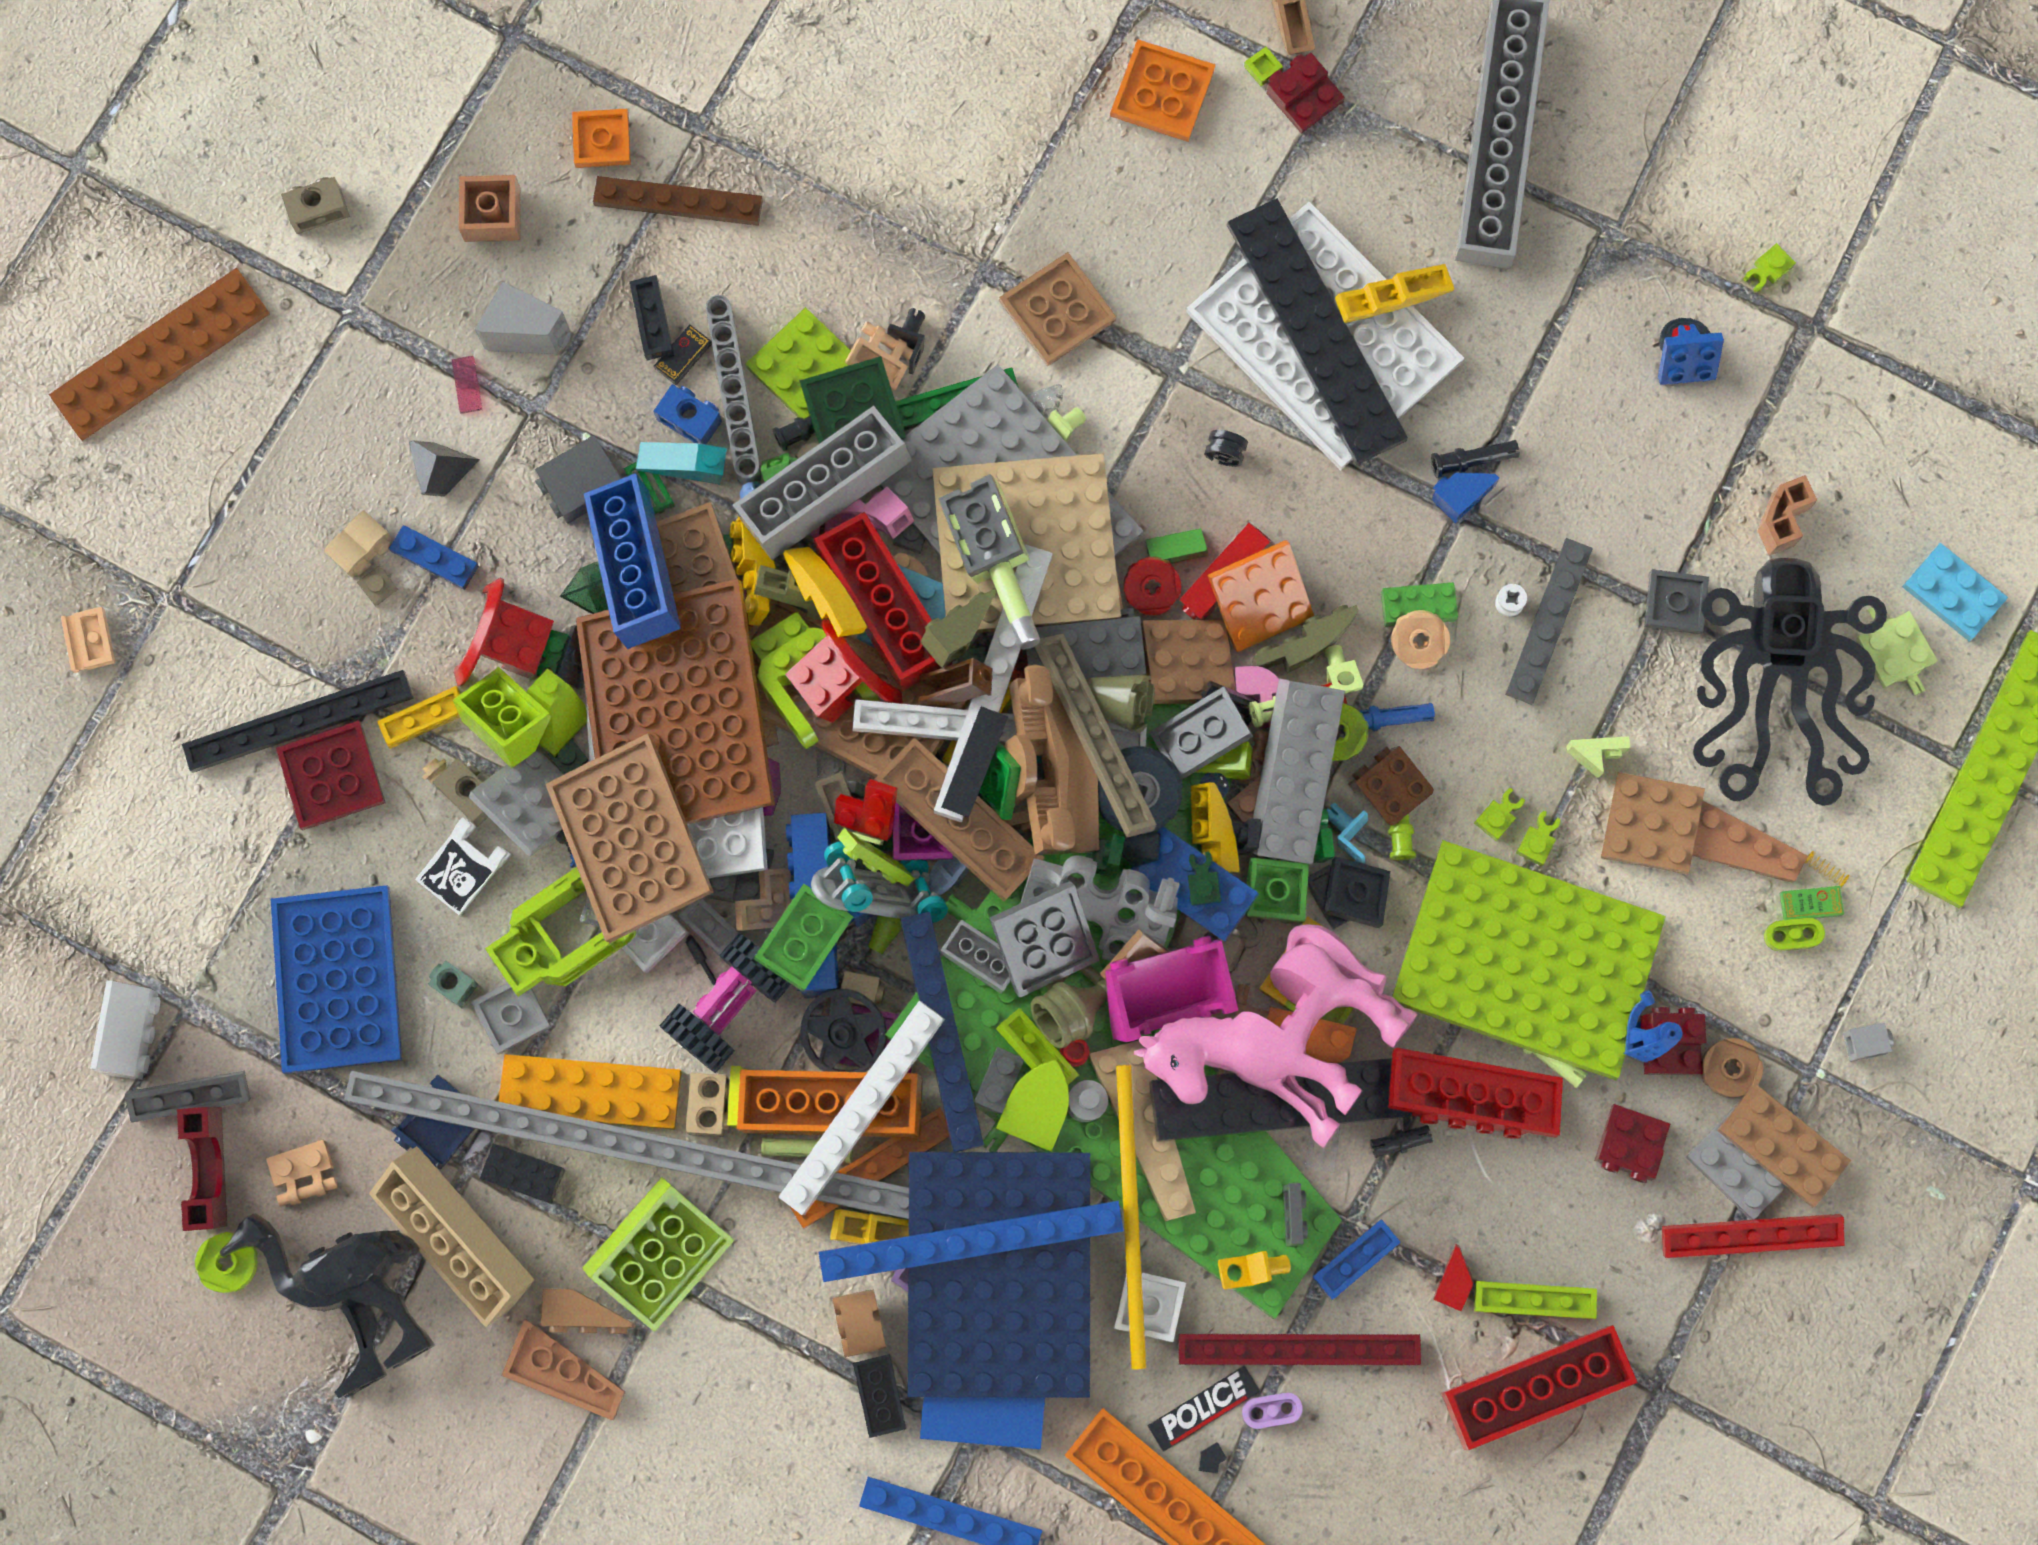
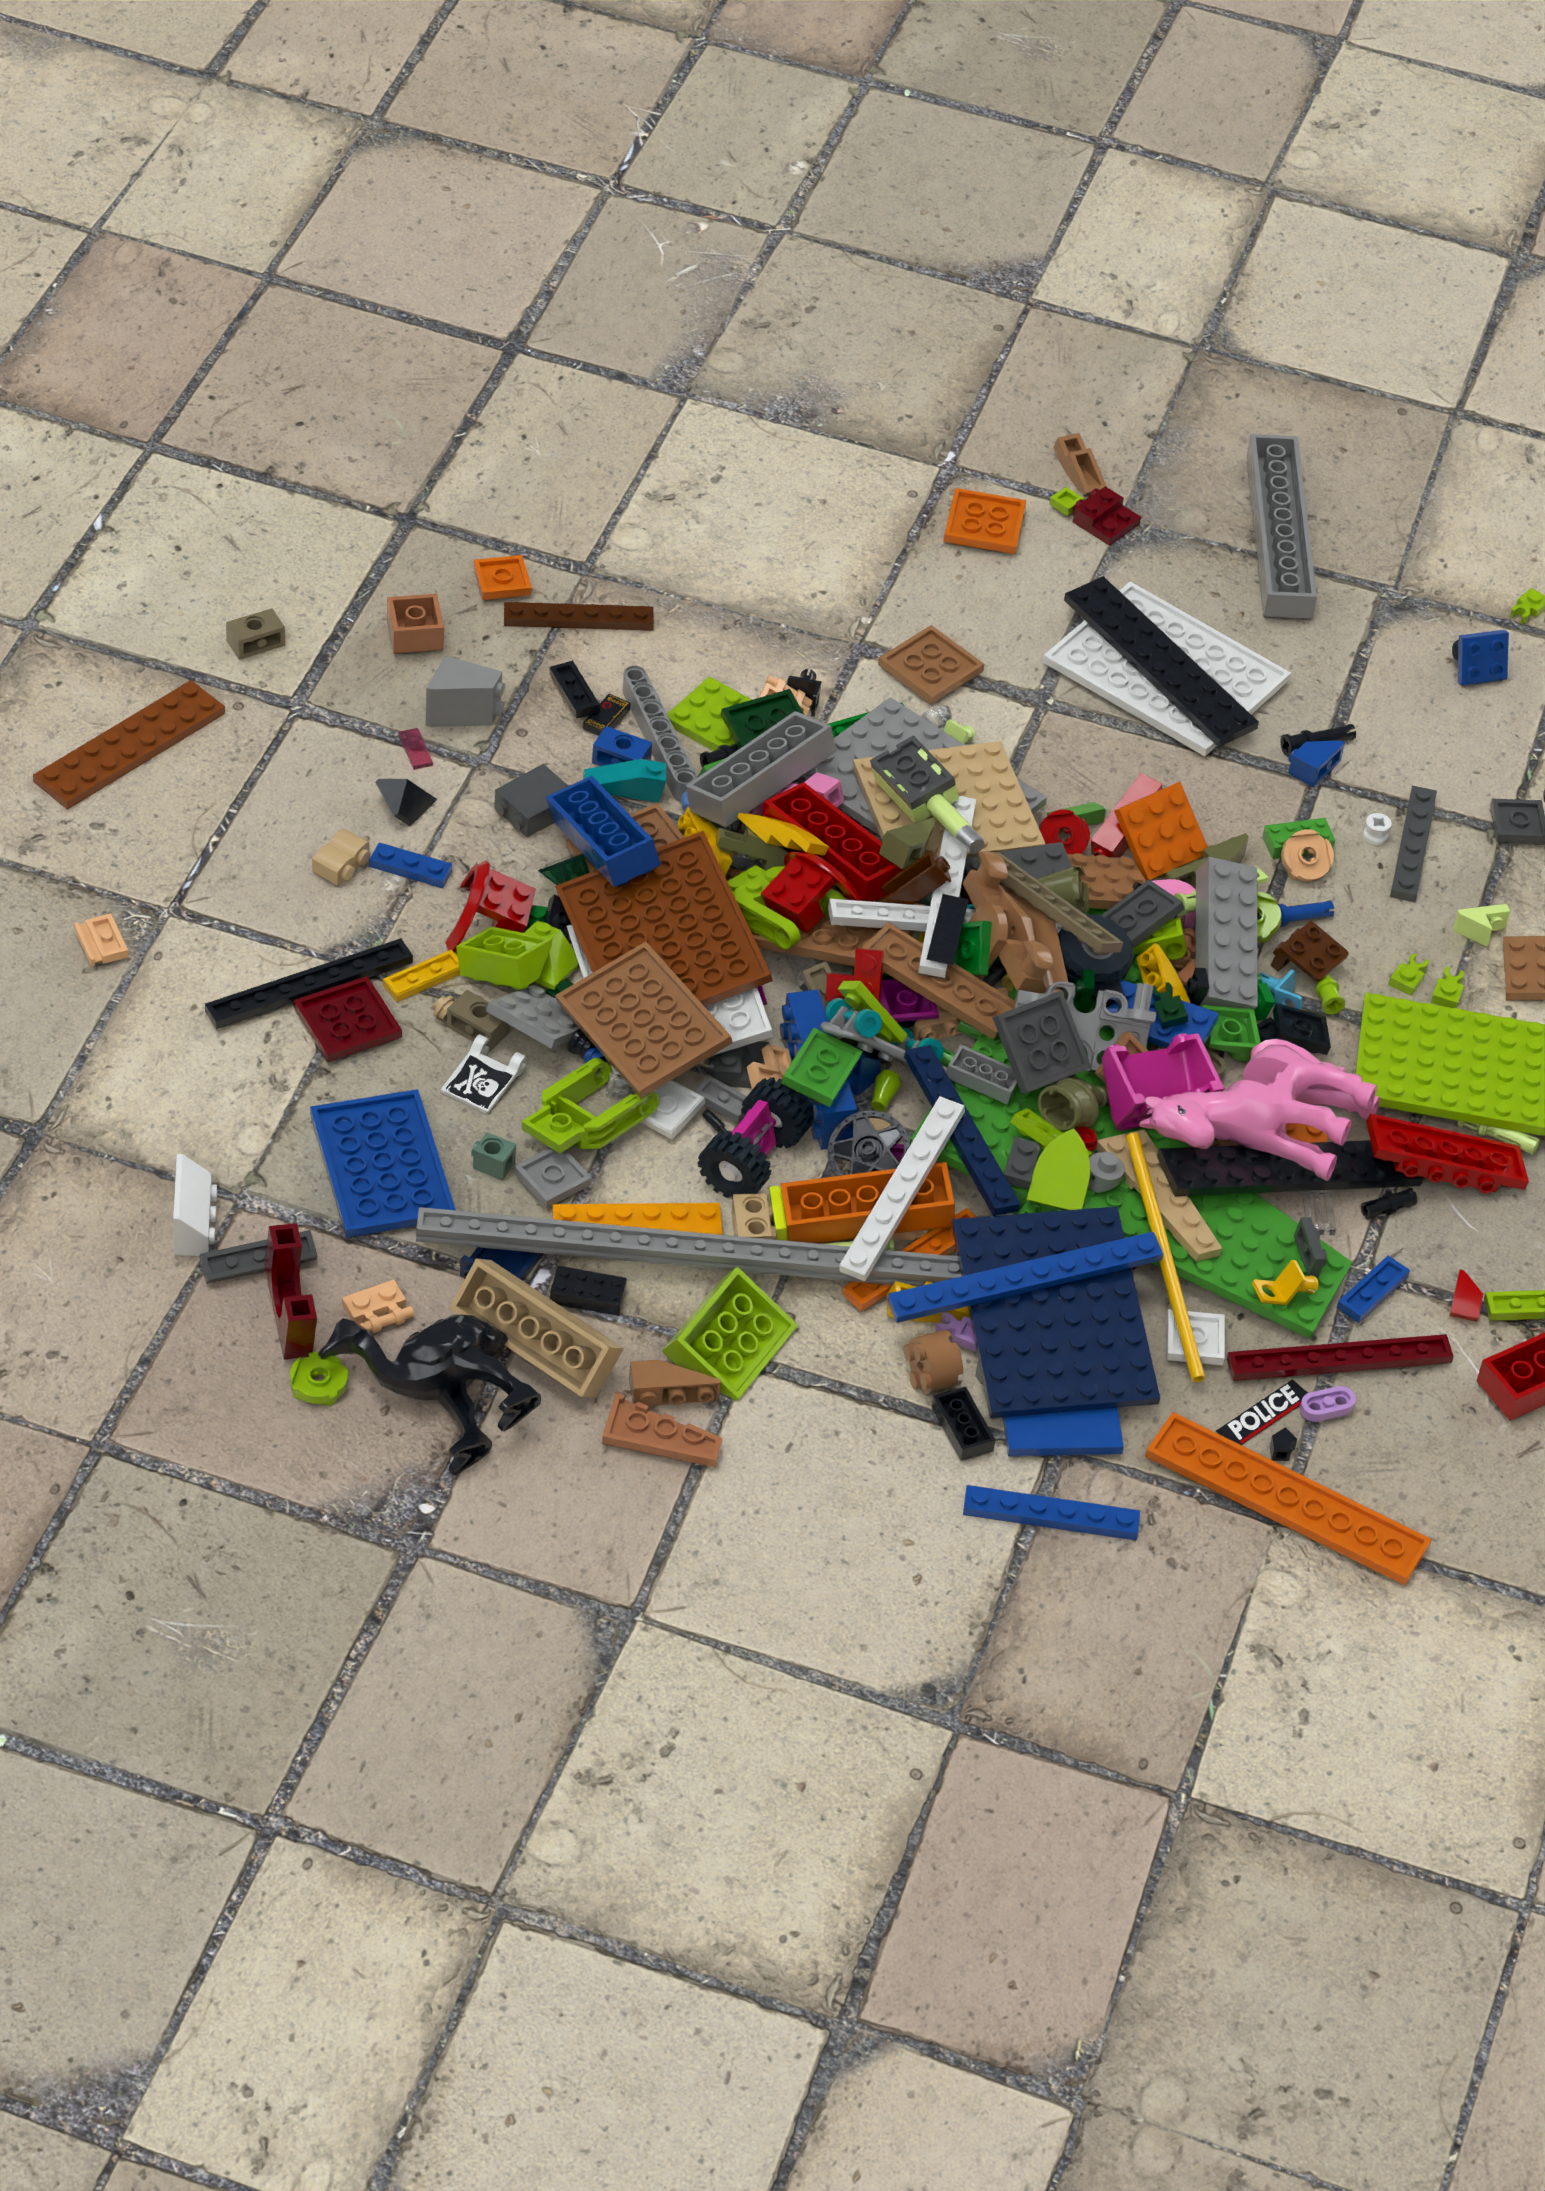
camera: 15 degrees left, 30 degrees down
(377, 585) = (362, 888): dark tan plate -> none
(946, 874) = (939, 1029): sand blue plate -> none
(1226, 448) = (1103, 741): black wheel -> none
(1395, 293) = (1225, 630): yellow slope -> none

